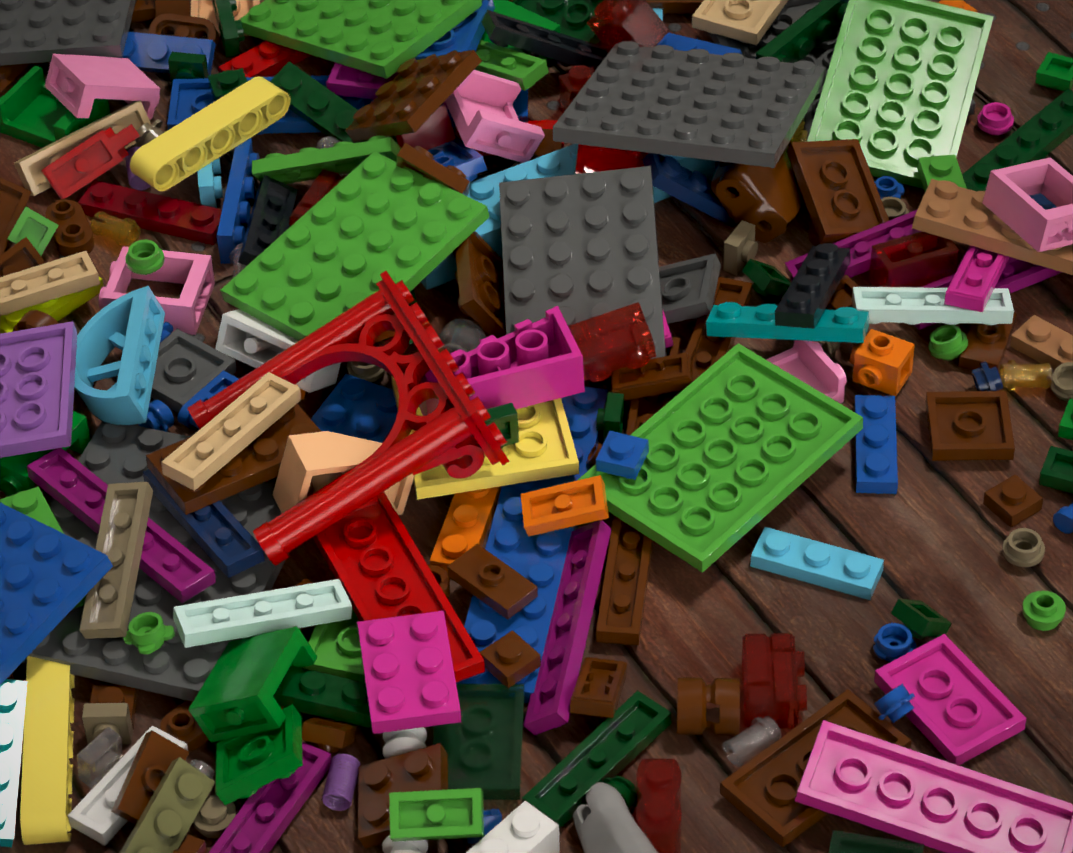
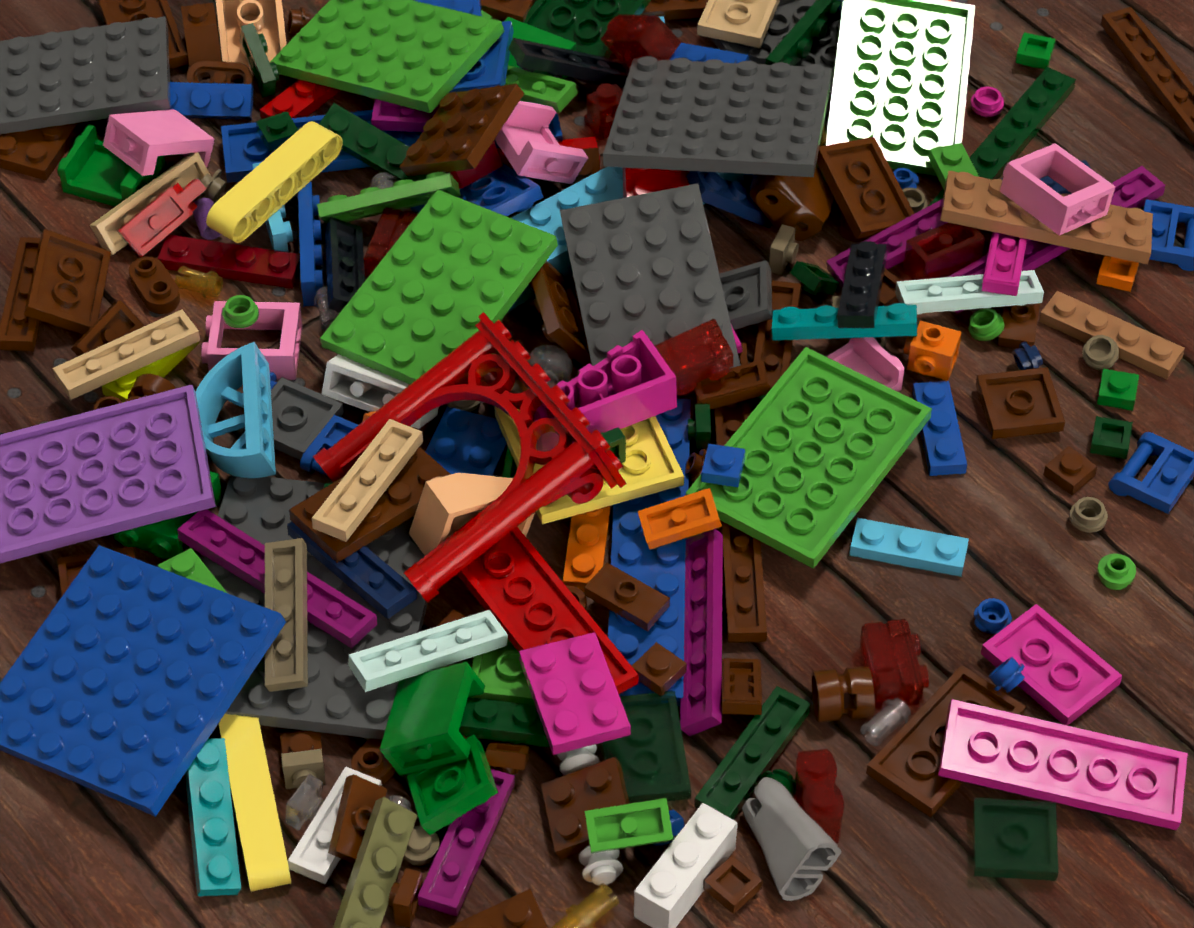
camera: 10 degrees left, 5 degrees up
(34, 227) = (123, 288): bright green plate -> none
(148, 632) = (328, 680): bright green plate -> none
(158, 416) = (285, 465): blue plate -> none
(187, 66) = (232, 112): dark green plate -> none
(341, 782) = (525, 802): medium lavender piece -> none
(424, 163) = (487, 197): reddish brown plate -> none
(920, 618) = (1012, 591): dark green plate -> none
(1025, 375) = (1060, 349): clear yellow pin -> none

